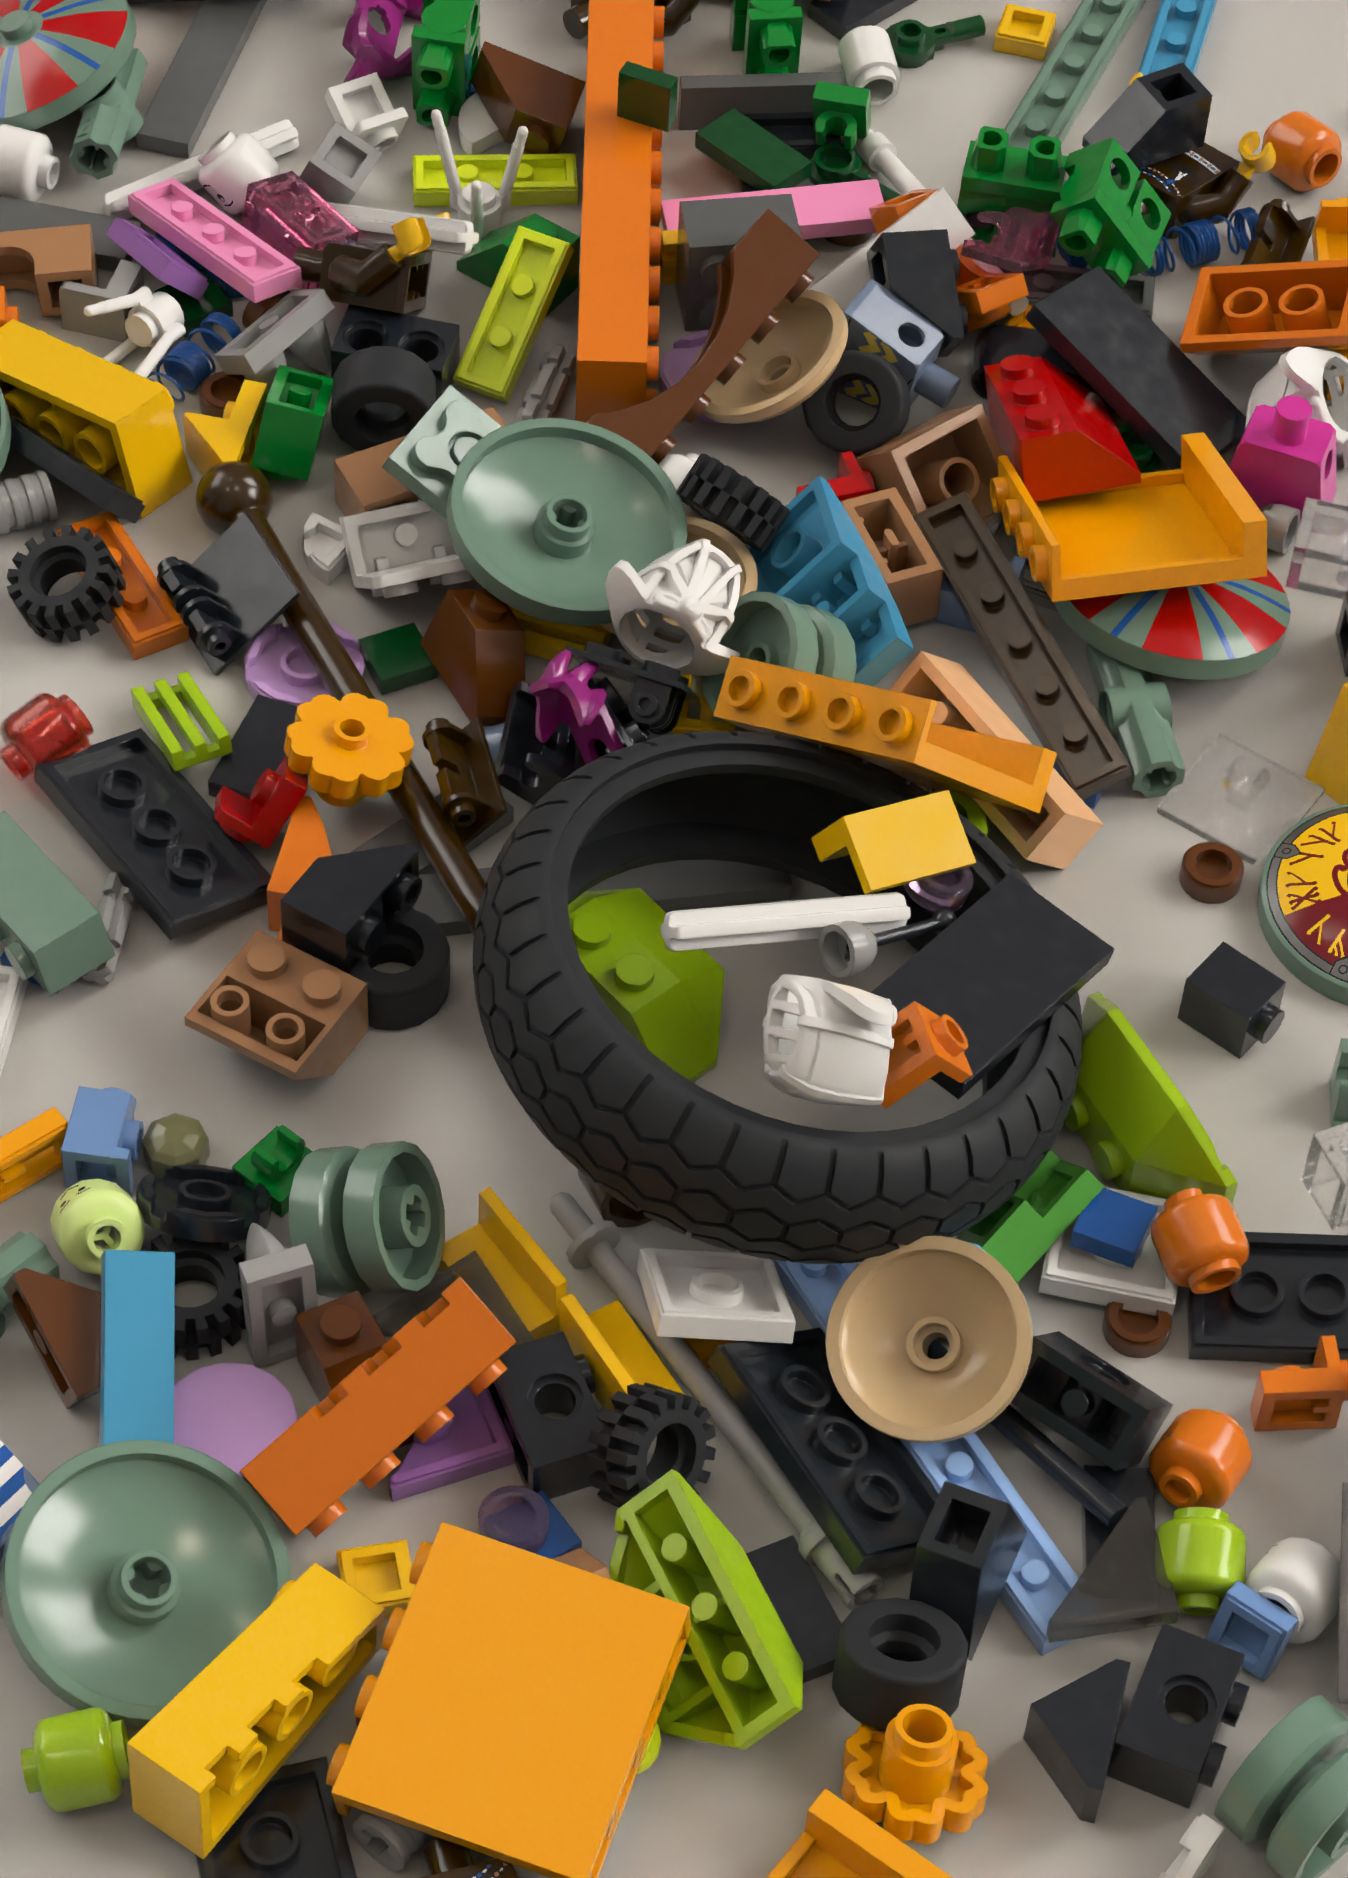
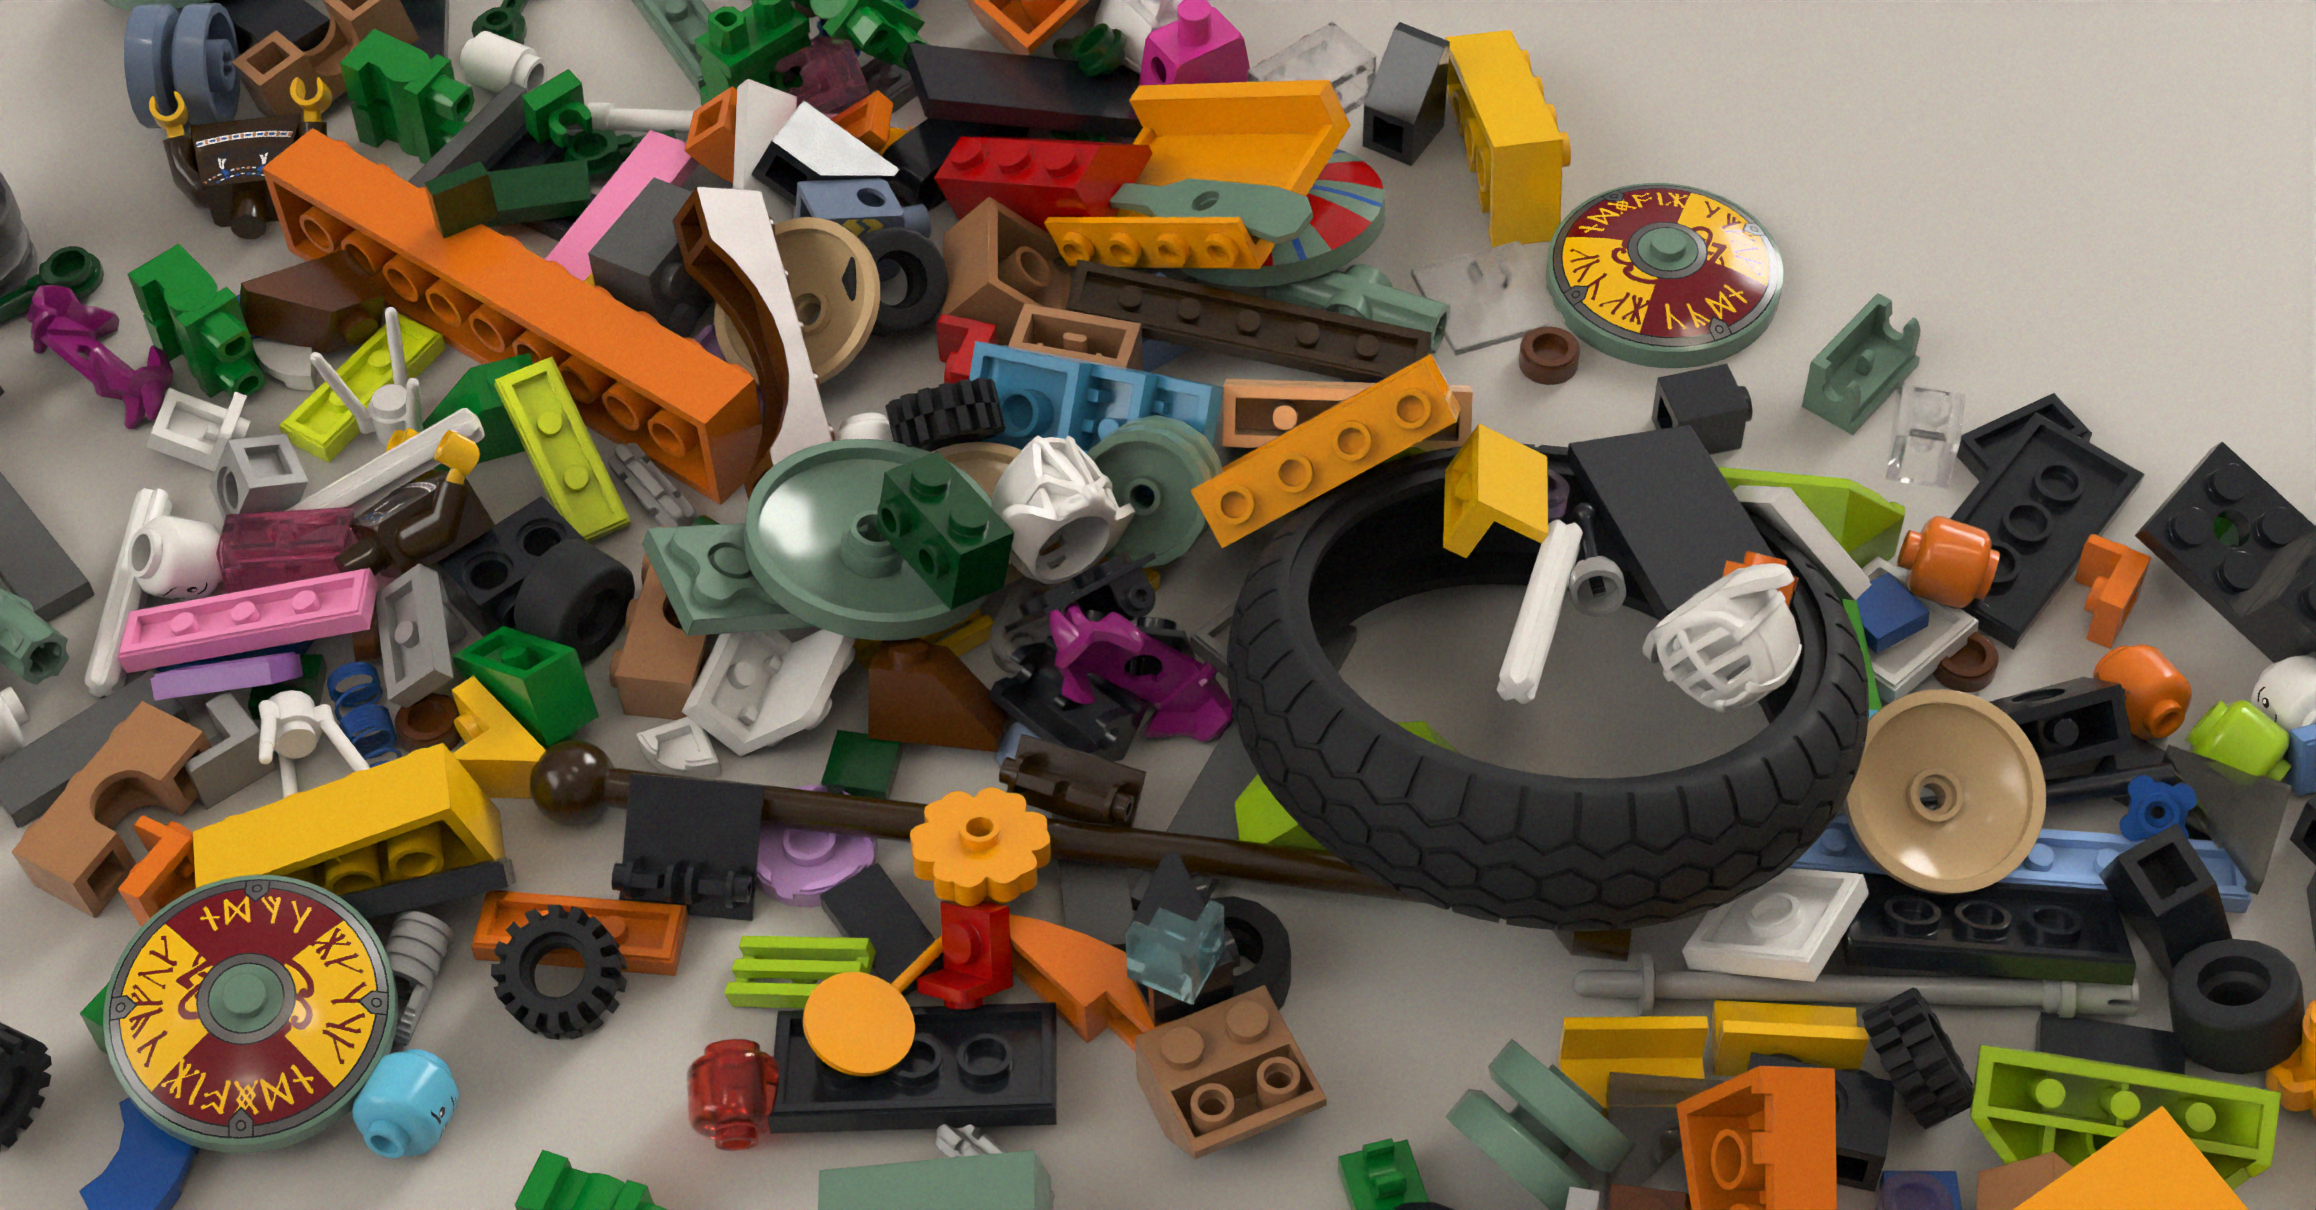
camera: 50 degrees left, 0 degrees up
(157, 770) = (862, 1020): none -> light orange piece
(311, 890) = (1175, 951): none -> clear light blue panel
(587, 544) = (944, 530): none -> dark green brick
(1080, 1523) = (2145, 796): none -> blue plate
(1082, 1097) = (1794, 520): none -> white tile
(1087, 541) = (1264, 209): none -> sand green piece
(1229, 392) = (1097, 49): none -> dark green plate

